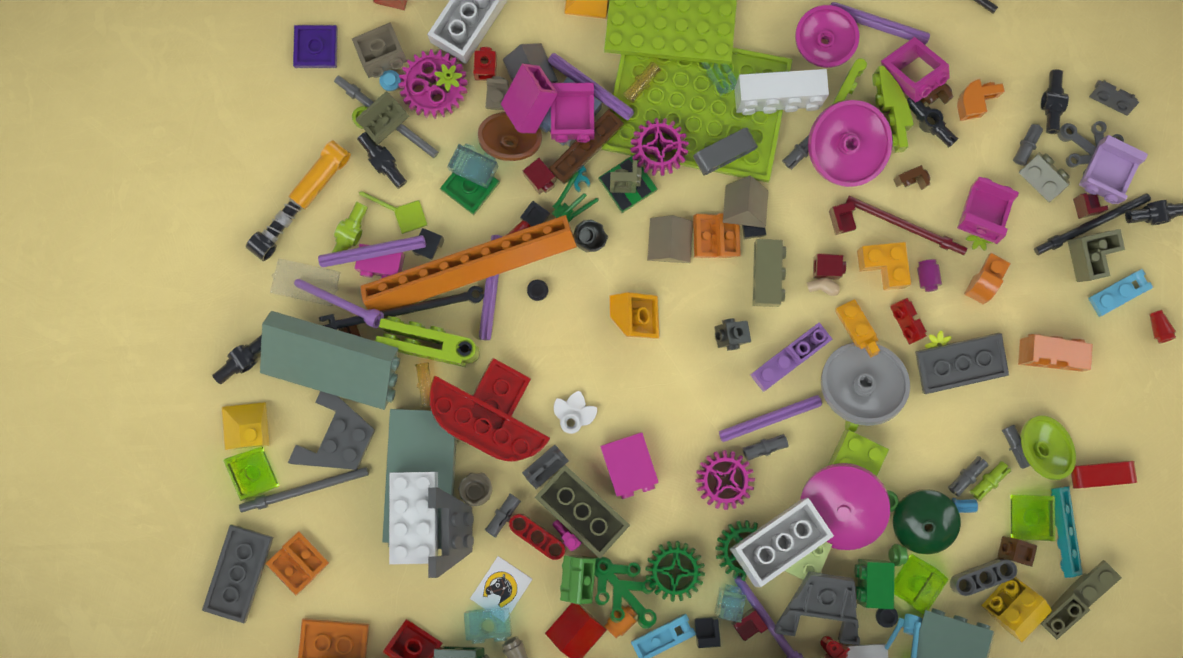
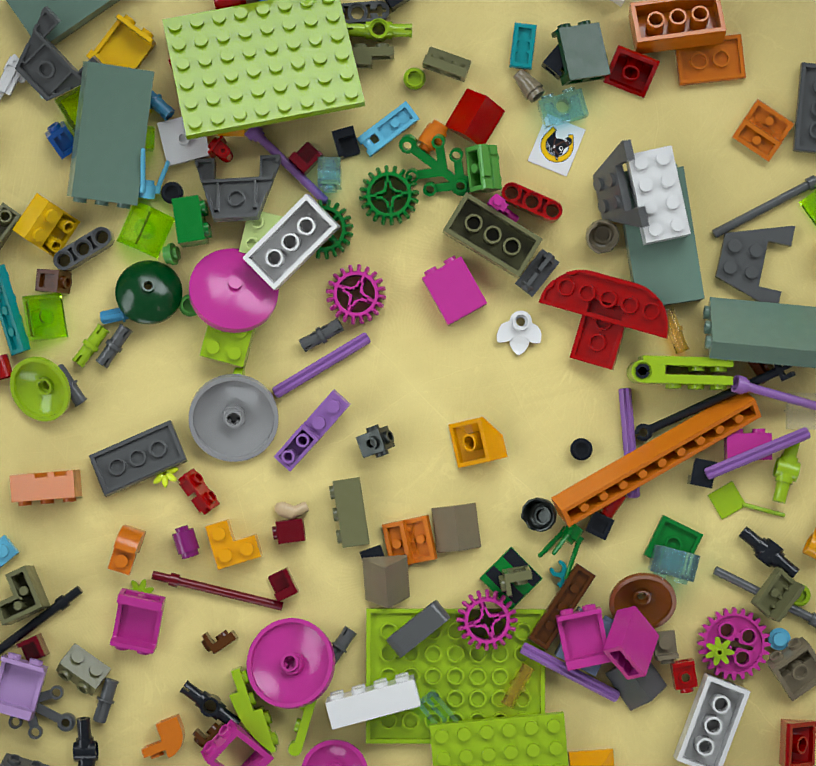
camera: 170 degrees right, 5 degrees up
(502, 515) = (569, 216): dark grey pin -> none
(539, 176) = (602, 566): dark red brick -> none
(858, 327) = (249, 474): light orange hinge -> none

